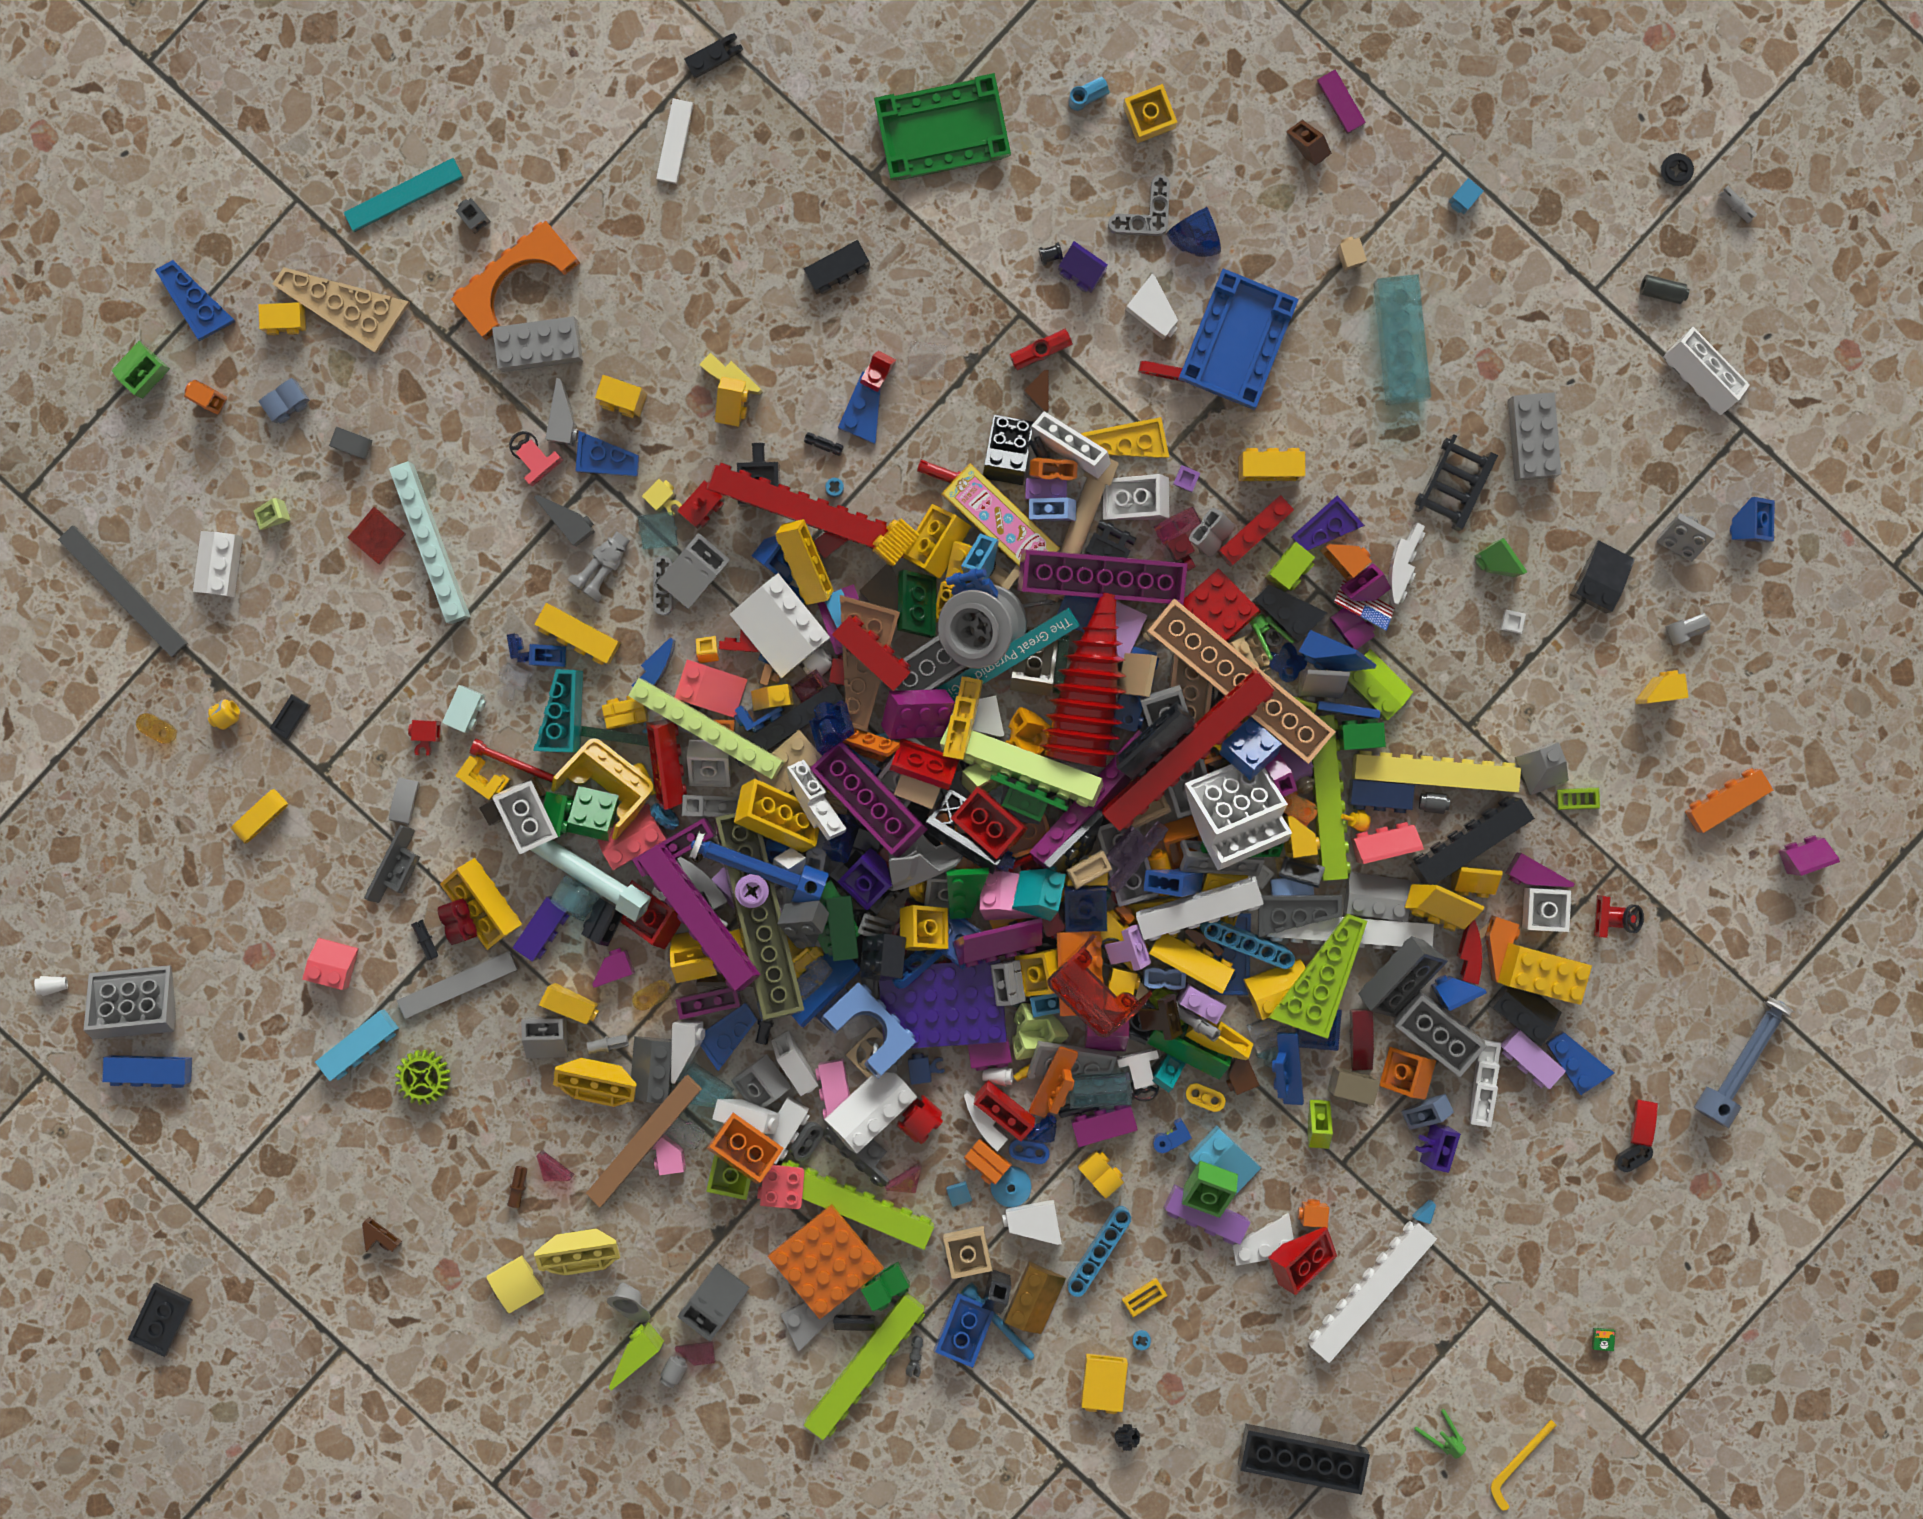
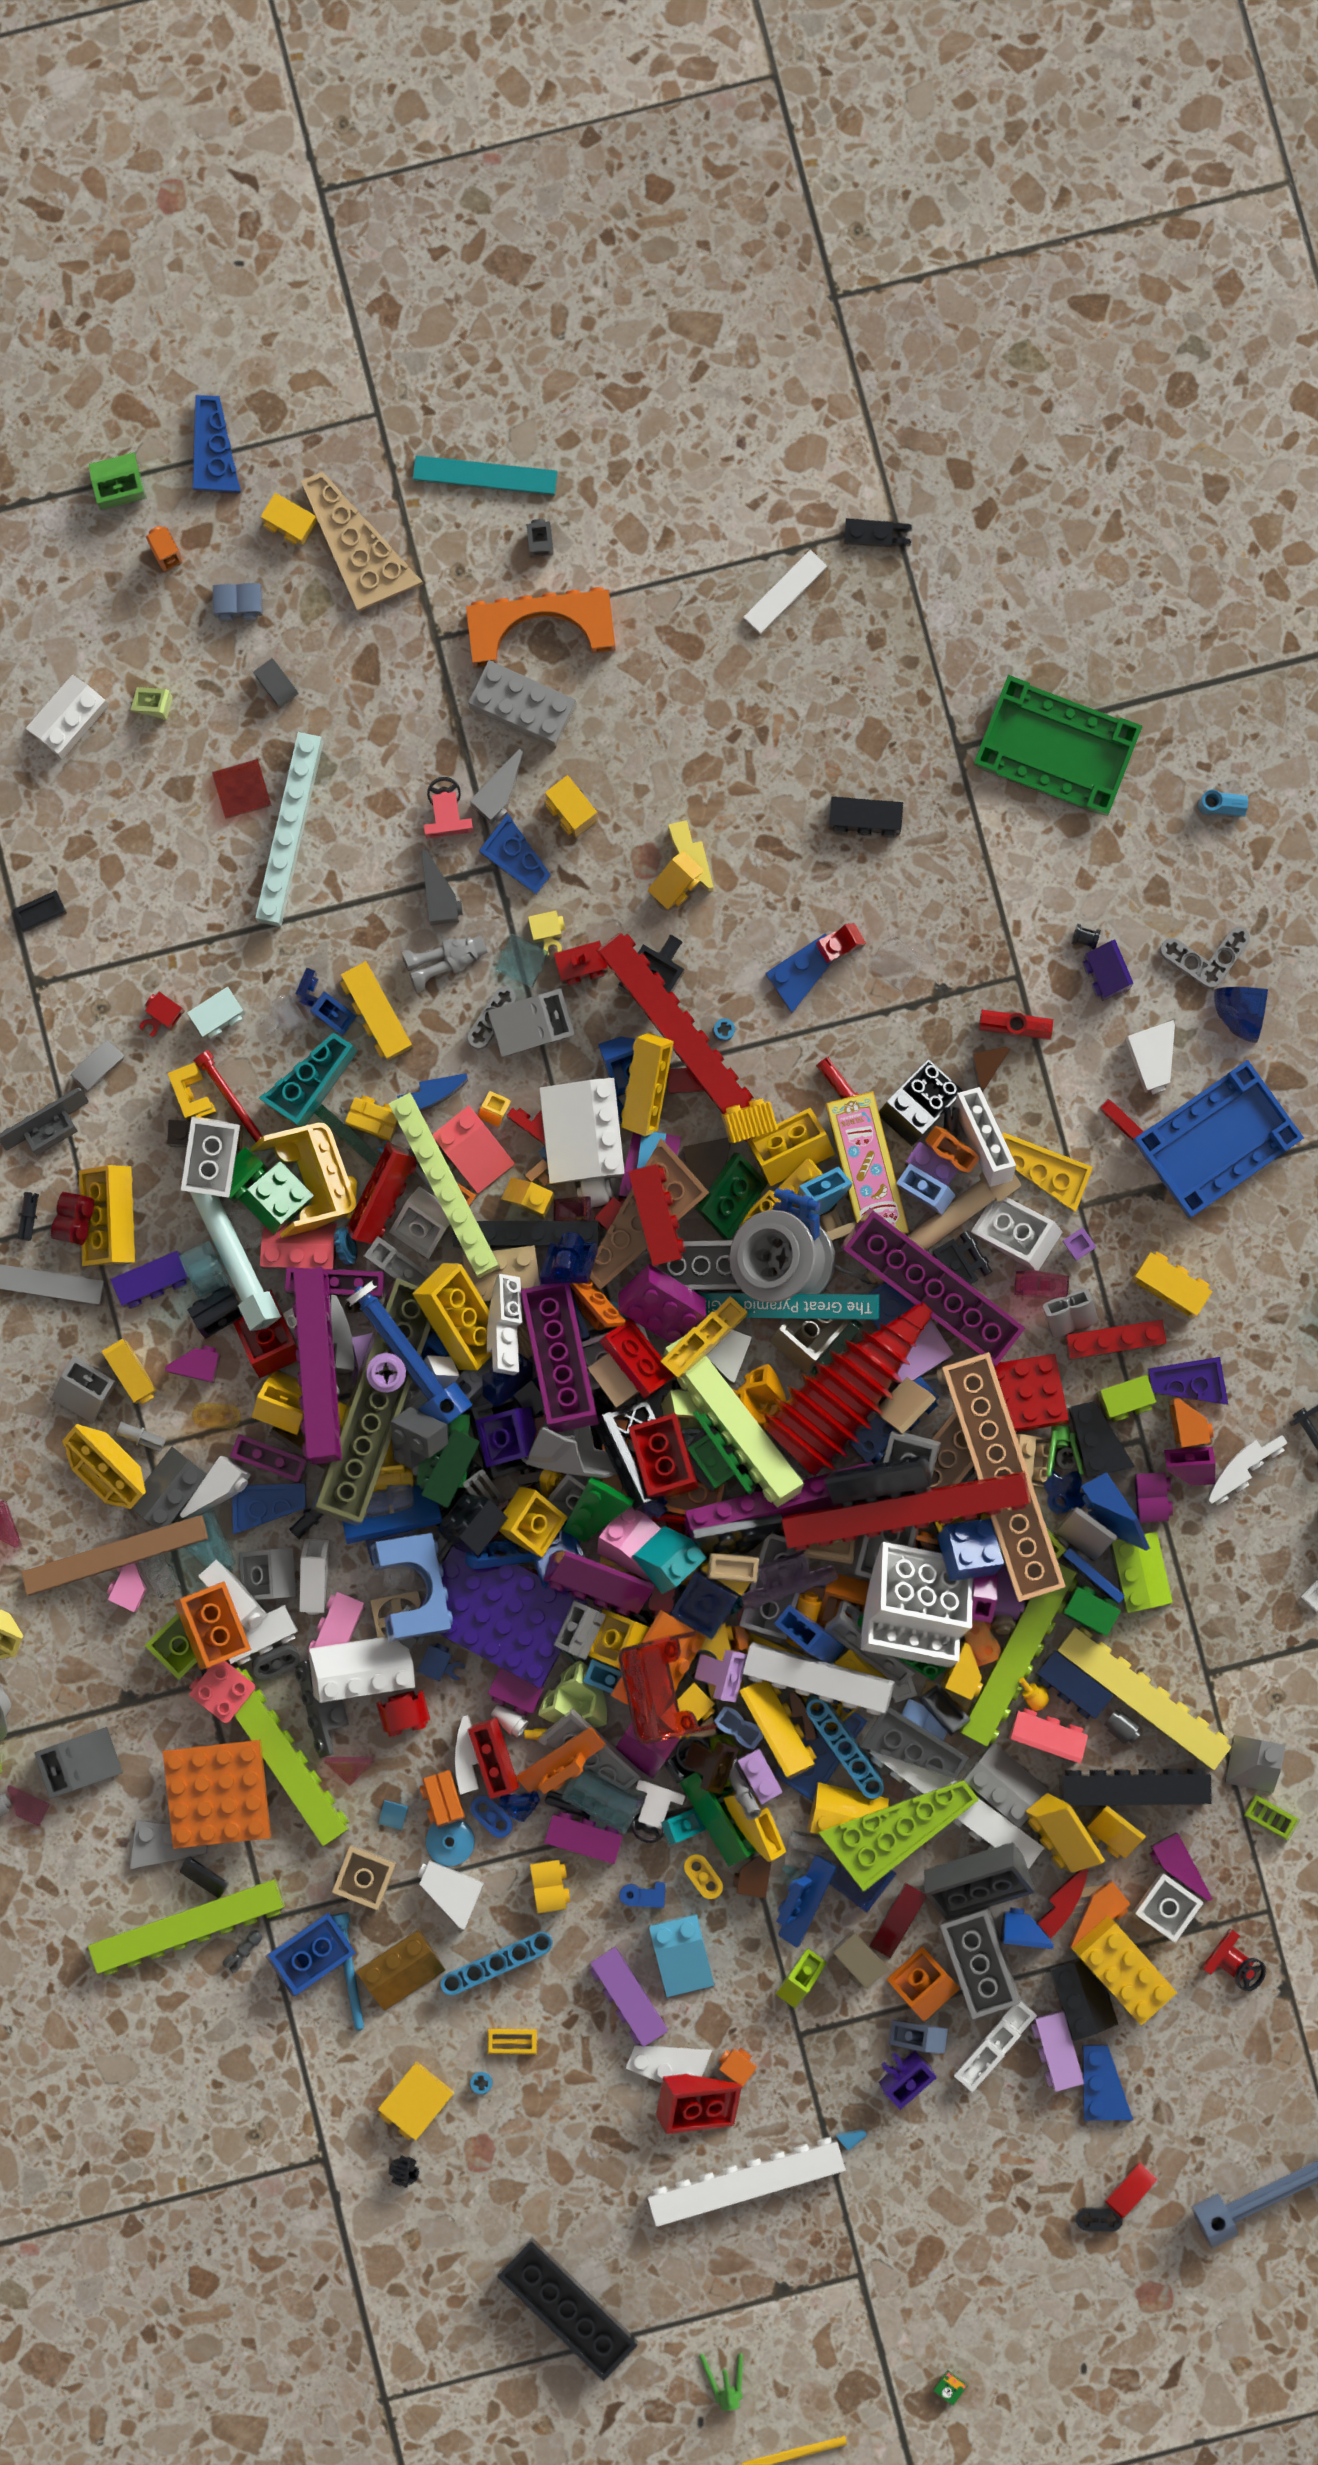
camera: 30 degrees right, 5 degrees down
(744, 719) = (486, 1200): blue bracket -> none
(823, 443) = (741, 980): black axle -> none
(884, 1286) = (260, 1857): green brick -> none
(997, 1291) = (367, 1936): black slope -> none
(1150, 113) = (1271, 862): yellow brick -> none
(1181, 549) = (1029, 1310): dark red brick -> none
(1210, 1189) = (648, 1968): bright green brick -> none
(1373, 611) = (1184, 1497): sticker -> none

